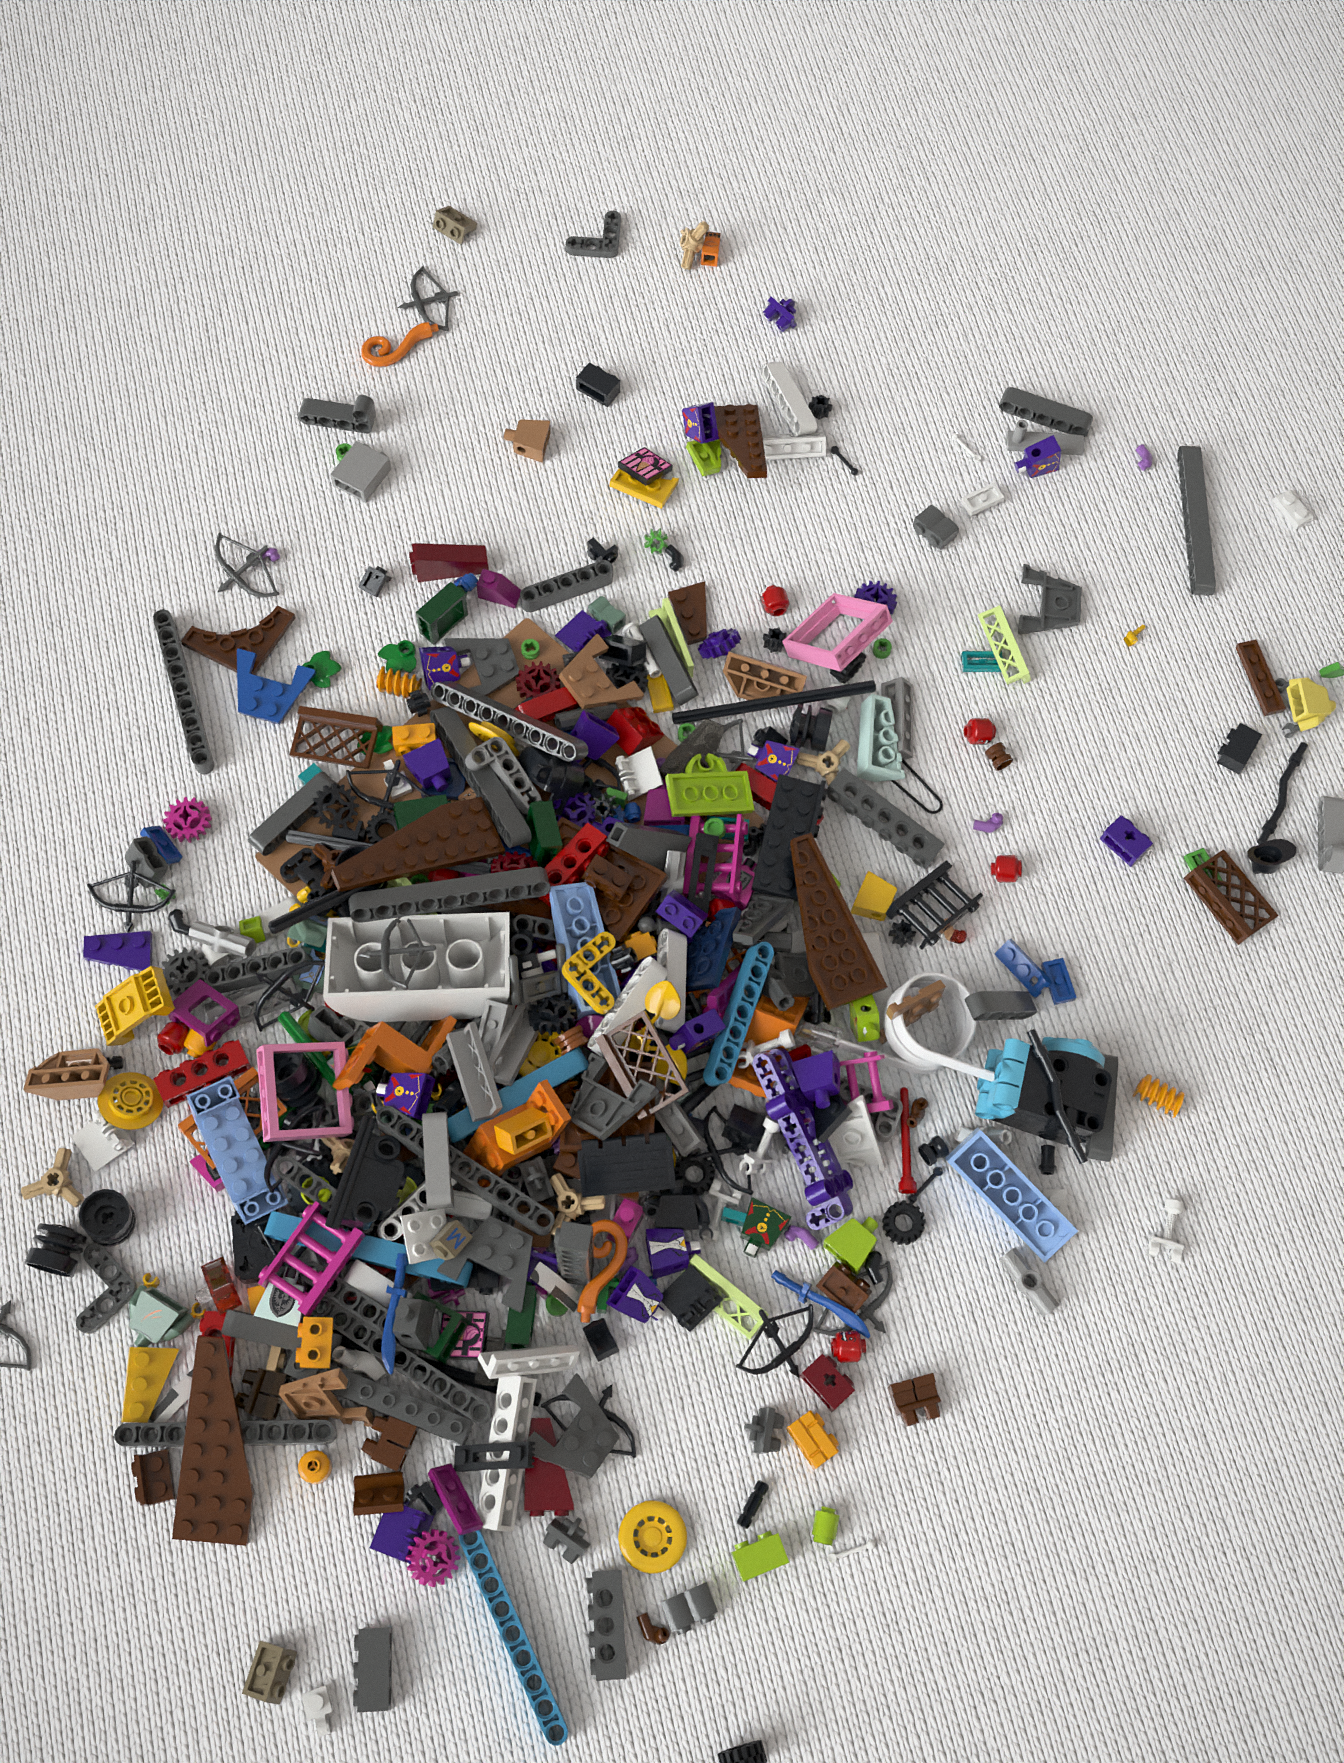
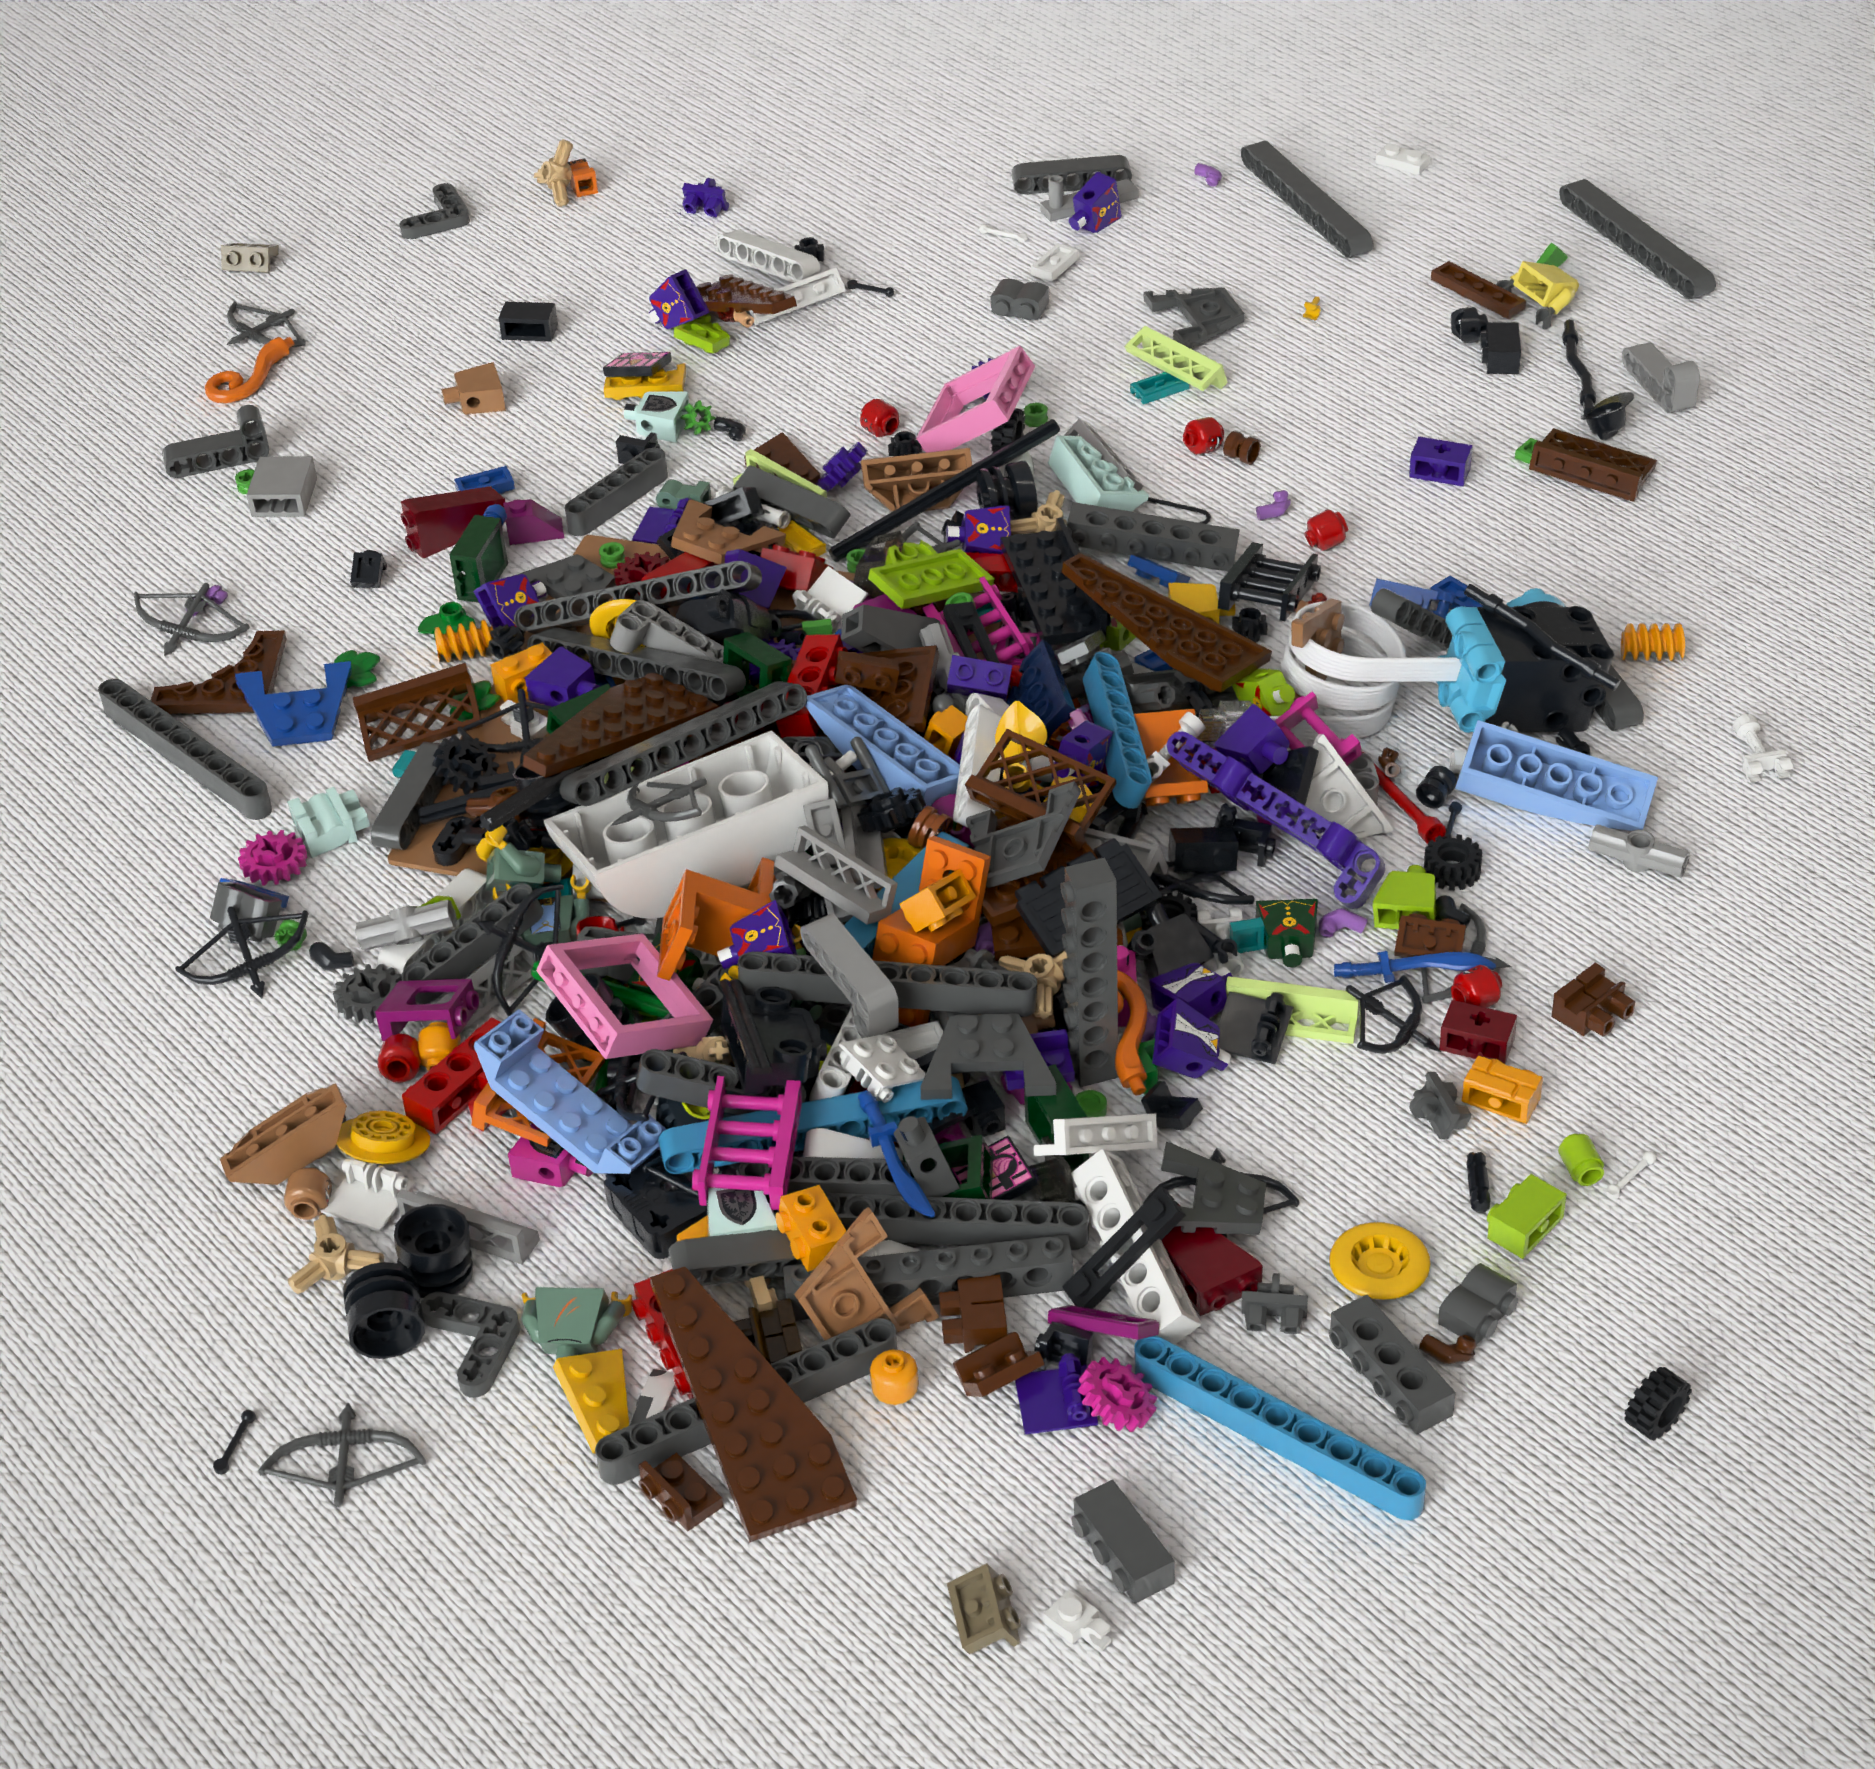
camera: 20 degrees left, 25 degrees down
(68, 1120) = (307, 1193): none -> medium nougat head
(122, 949) = (268, 1009): dark purple wing -> none
(133, 1003) = (325, 1028): yellow plate -> none
(145, 1197) = (486, 1231): none -> light grey fence
(219, 1286) = (637, 1249): clear red piece -> none
(234, 803) = (328, 820): none -> light aqua hips
(450, 1240) = (919, 1047): dark tan brick -> none
(488, 533) = (497, 478): none -> blue plate
(556, 1286) = (1081, 1068): white sticker -> none
(583, 968) = (896, 751): yellow beam -> none
(602, 810) = (814, 625): black gear -> none
(623, 958) = (940, 731): black gear -> none
(634, 523) = (659, 414): none -> light aqua torso
(760, 1157) = (1232, 813): white bar -> none
(873, 849) = (1148, 568): none -> blue plate
(1229, 714) = (1470, 324): none -> black piece

